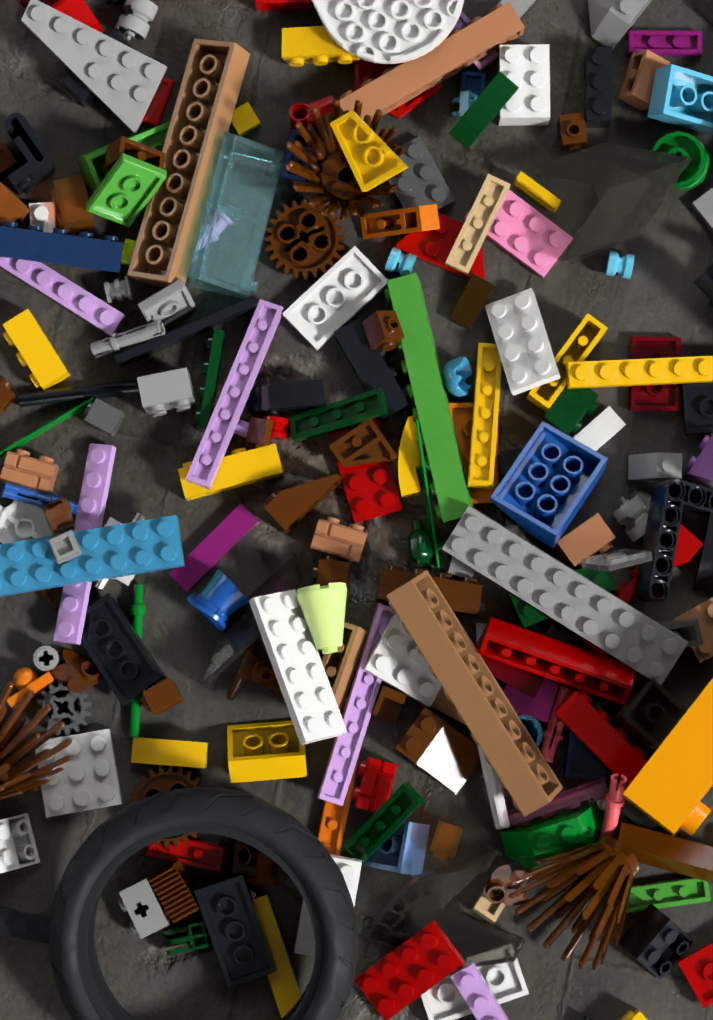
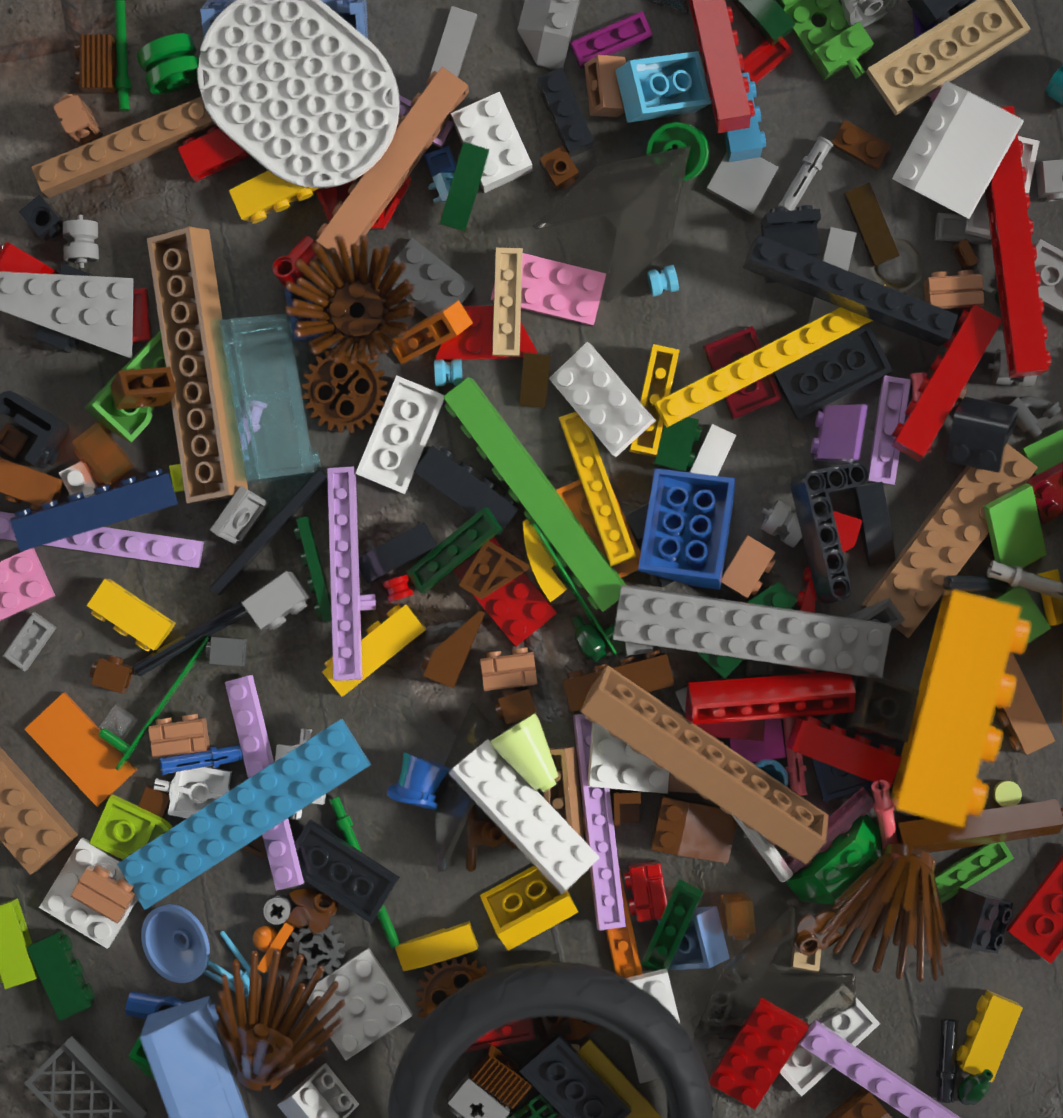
camera: 30 degrees left, 5 degrees up
(58, 515) = (226, 769): reddish brown panel -> none
(65, 546) = (246, 798): light grey tile -> none
(118, 289) = (184, 520): light grey bush -> none
(118, 342) = (207, 571): light grey pin -> none
(126, 190) = (147, 421): bright green tile -> none
(161, 697) = (405, 899): reddish brown brick -> none
(214, 547) = (391, 729): magenta tile -> none
(244, 119) = (232, 296): yellow tile -> none
(259, 431) = (384, 599): reddish brown tile -> none
(365, 151) = (368, 284): yellow wing -> none
(383, 330) = (461, 448): reddish brown brick -> none
(455, 375) = (550, 460): dark azure hair -> none
(537, 192) = (551, 243): yellow tile -> none
(616, 559) = (787, 575): clear tile -> none
(654, 466) = (782, 464): light grey slope -> none

